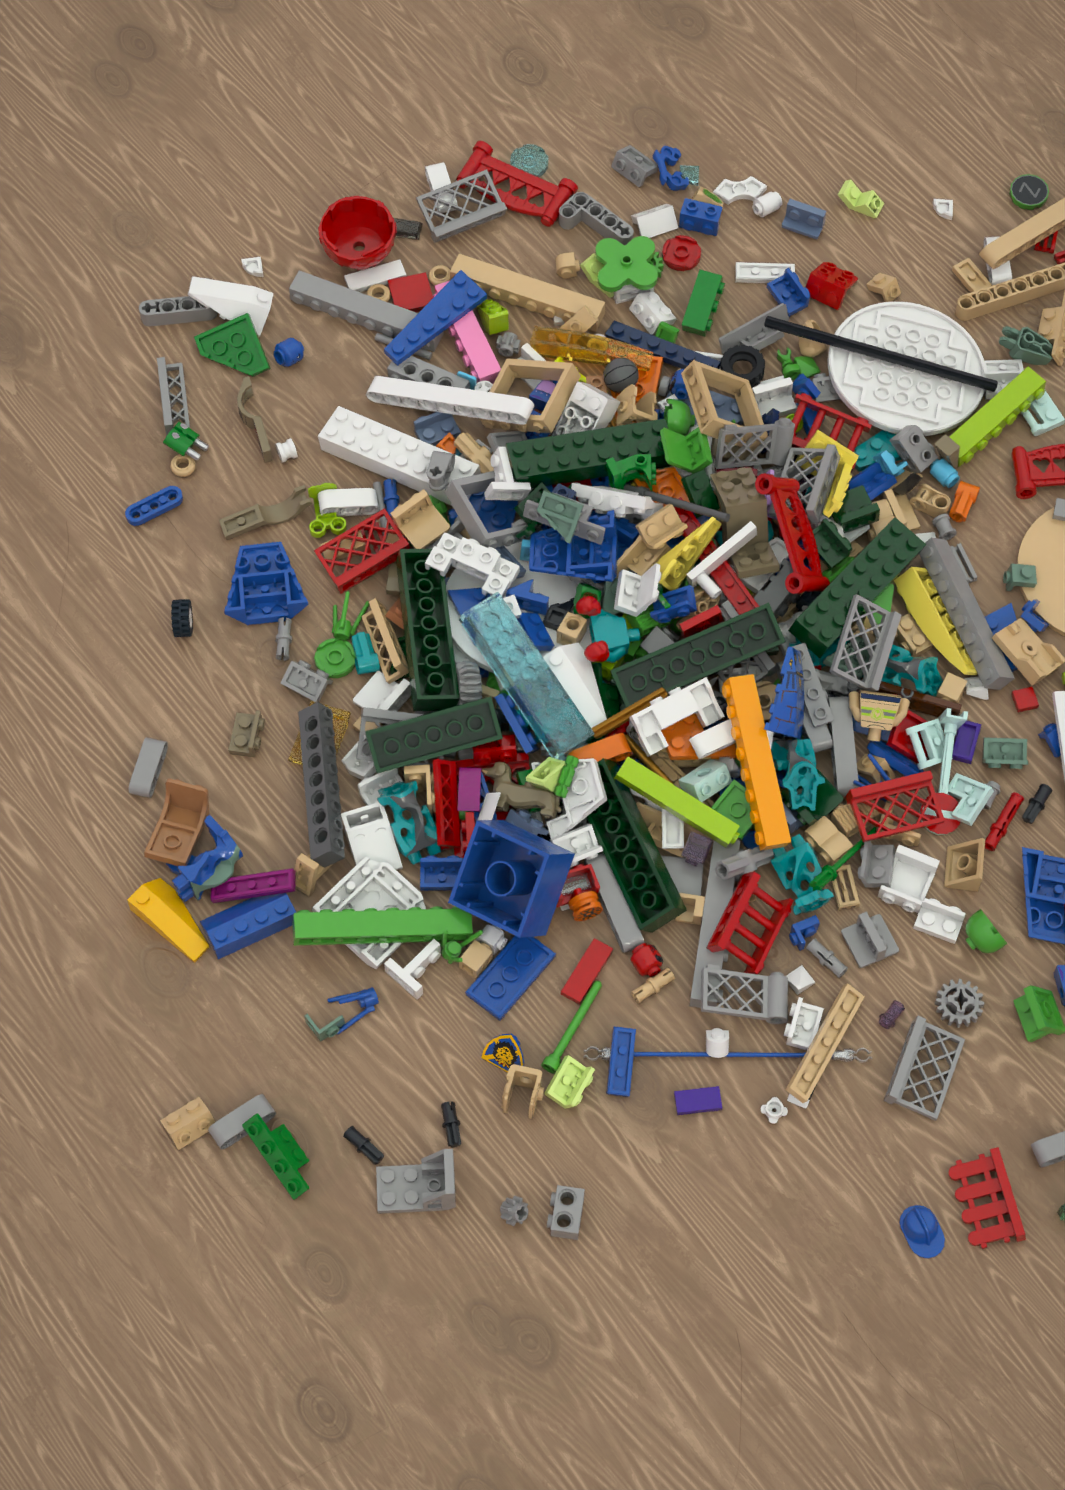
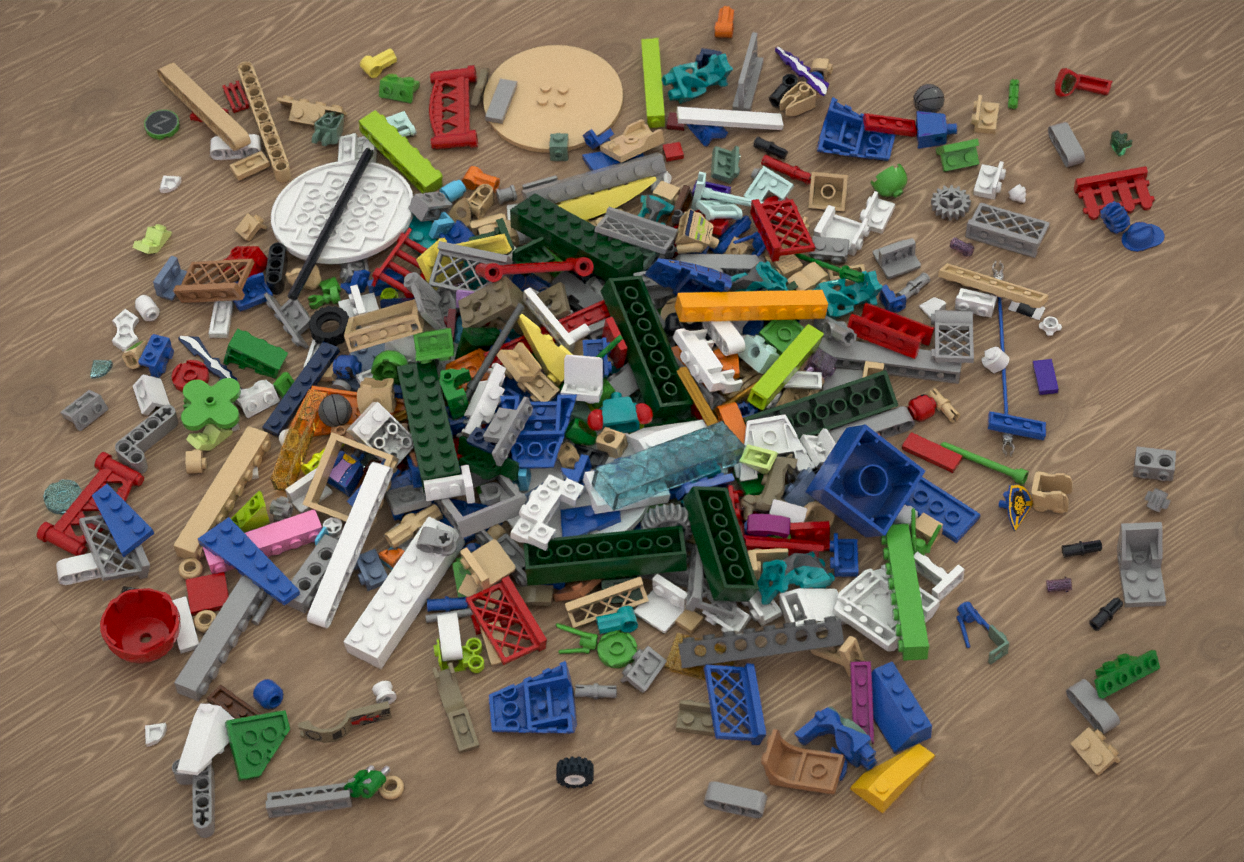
camera: 85 degrees left, 10 degrees down
(159, 499) = (435, 803): blue plate -> none
(258, 780) = (751, 704): none -> blue fence
(280, 328) = (231, 703): none -> reddish brown tile
(402, 1097) = (1059, 585): none -> clear purple pin
(484, 206) = (123, 522): none -> blue wing
(559, 588) = (568, 455): none -> tan bracket
(561, 513) = (511, 424): sand green wing -> none
(566, 776) = (760, 442): bright green axle -> none
(569, 1082) = (1038, 459): yellowish green bracket -> none
(581, 321) = (268, 448): tan plate -> none
(671, 156) = (80, 384): blue helmet -> none
(720, 255) = (196, 347): none -> dark blue sword
(785, 252) = (214, 290): none -> medium nougat fence
(816, 309) = (276, 268): none -> black beam
(940, 1192) = (1115, 217): none -> blue gear
(948, 450) = (436, 179): dark tan slope -> none
(980, 1083) = (1018, 194): none -> white plate
(1000, 1051) = (989, 182): none -> white bracket

